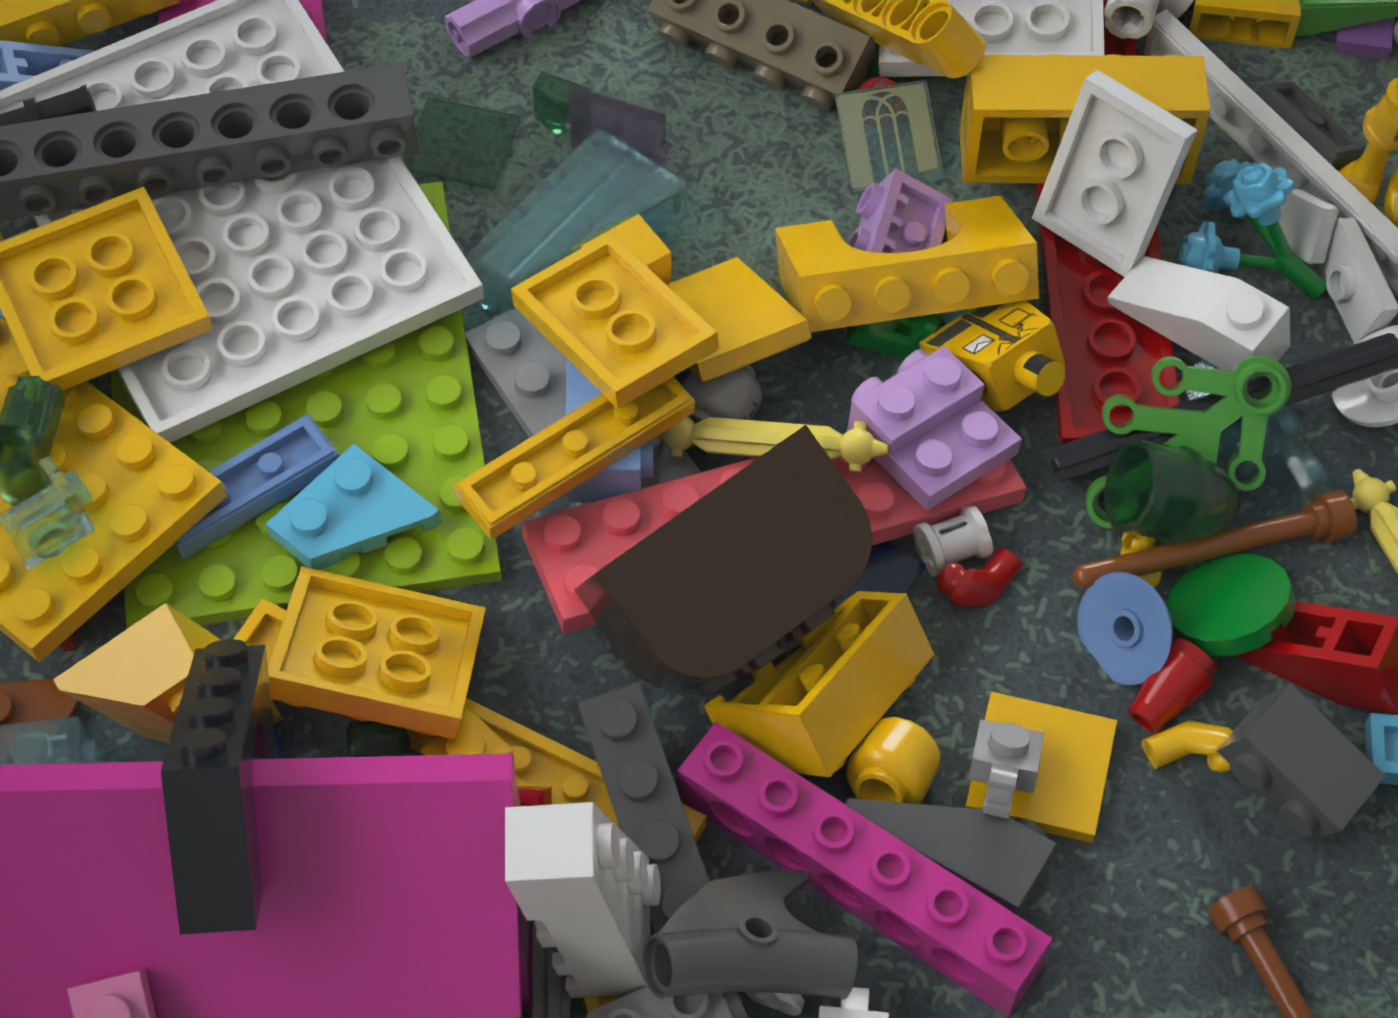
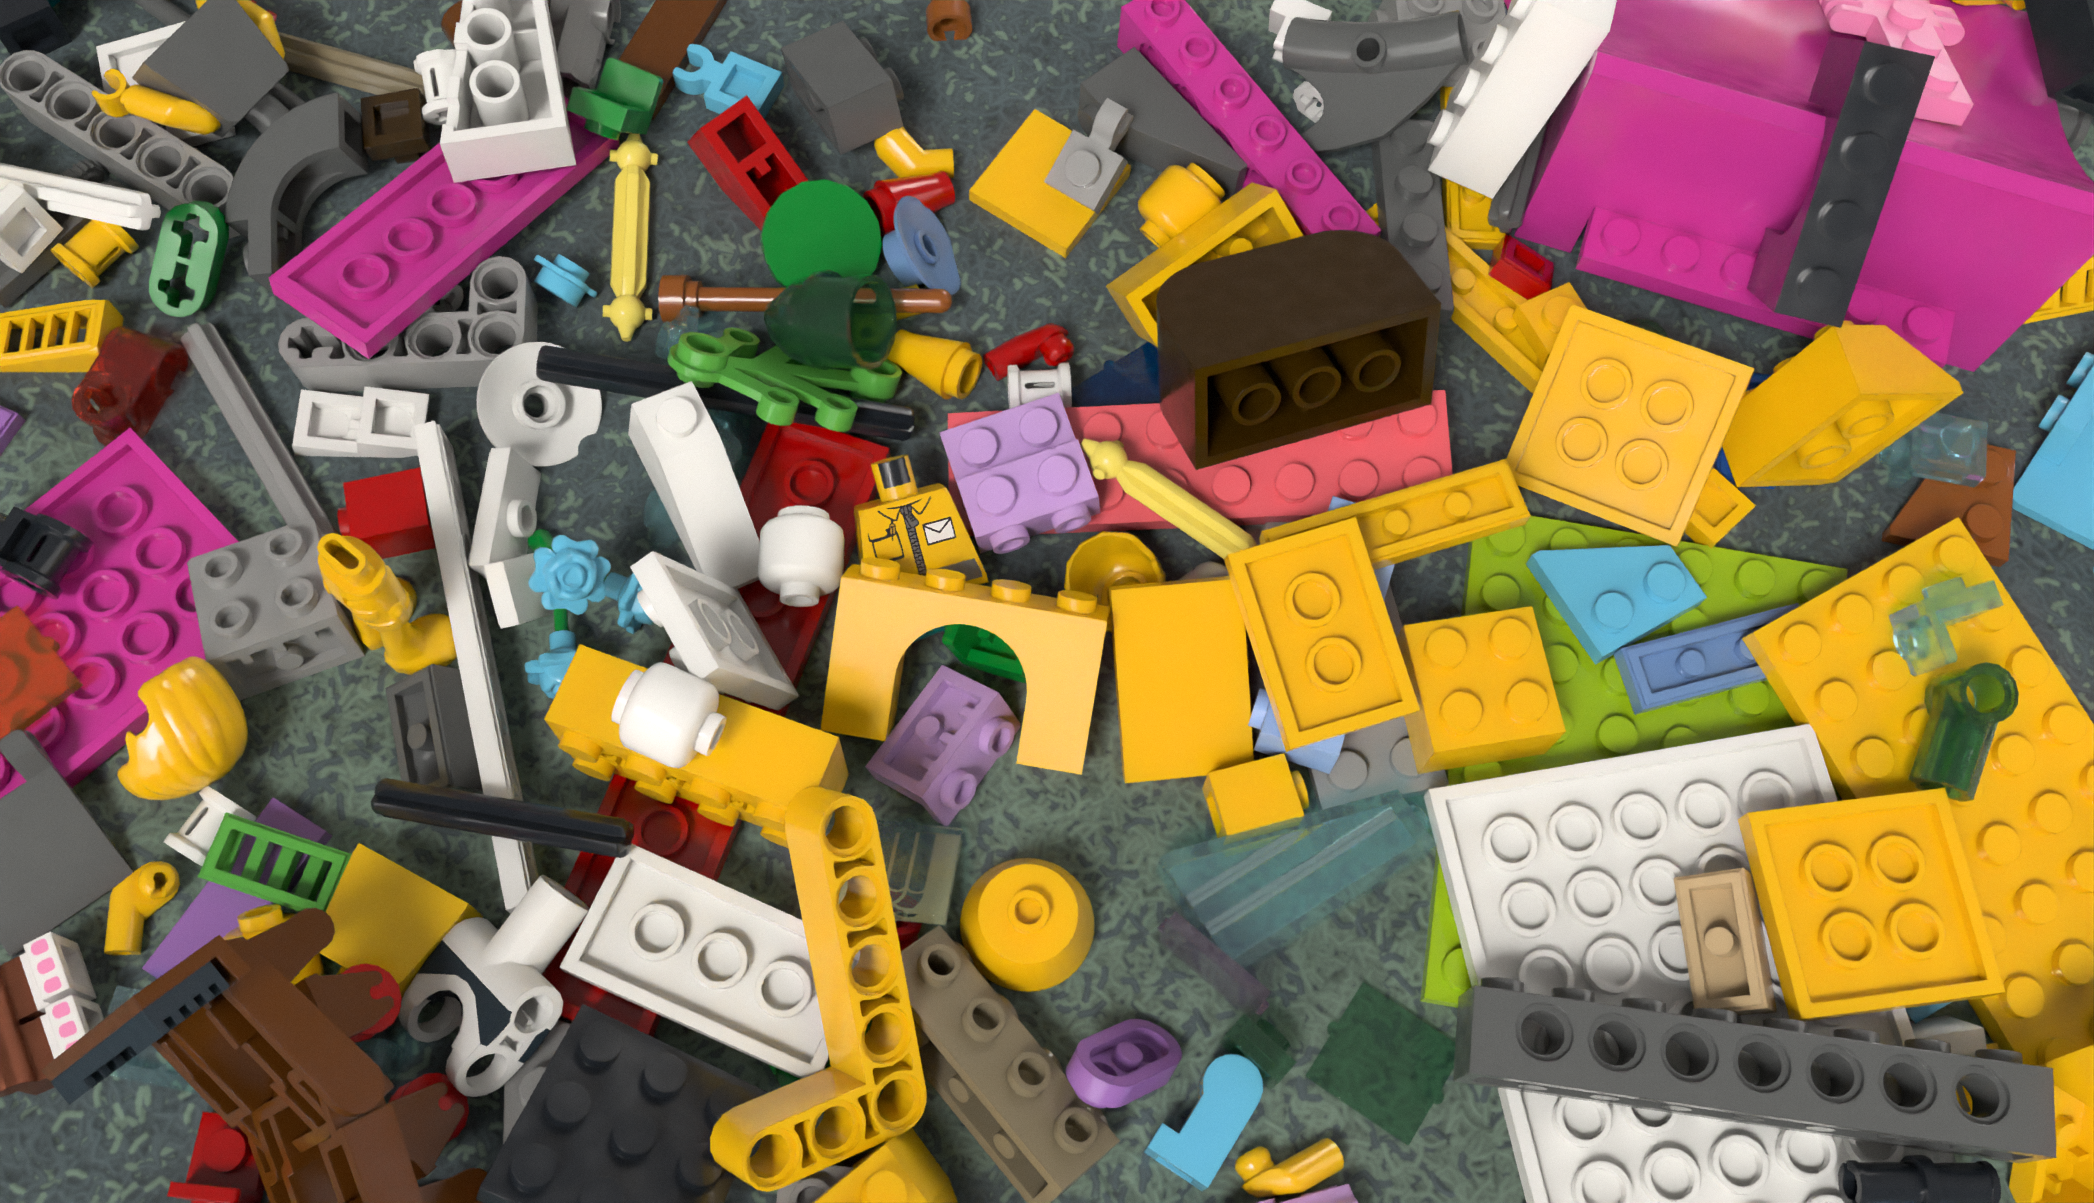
camera: 165 degrees left, 10 degrees up
(208, 238) = (1725, 942): none -> tan slope
(463, 370) = (1479, 690): none -> yellow brick
(516, 45) = (1291, 1175): none -> yellow arm
(585, 43) = (1226, 1100): none -> medium azure leg
(663, 57) = (1123, 1063): none -> medium lavender plate
(774, 133) = (1027, 924): none -> yellow cone
(808, 374) = (1111, 561): none -> yellow hair
(1059, 536) = (938, 363): none -> yellow cone
(1085, 295) = (801, 555): none -> white head
(1108, 47) = (668, 715): none -> white head
(1216, 46) = (503, 817): none -> black axle

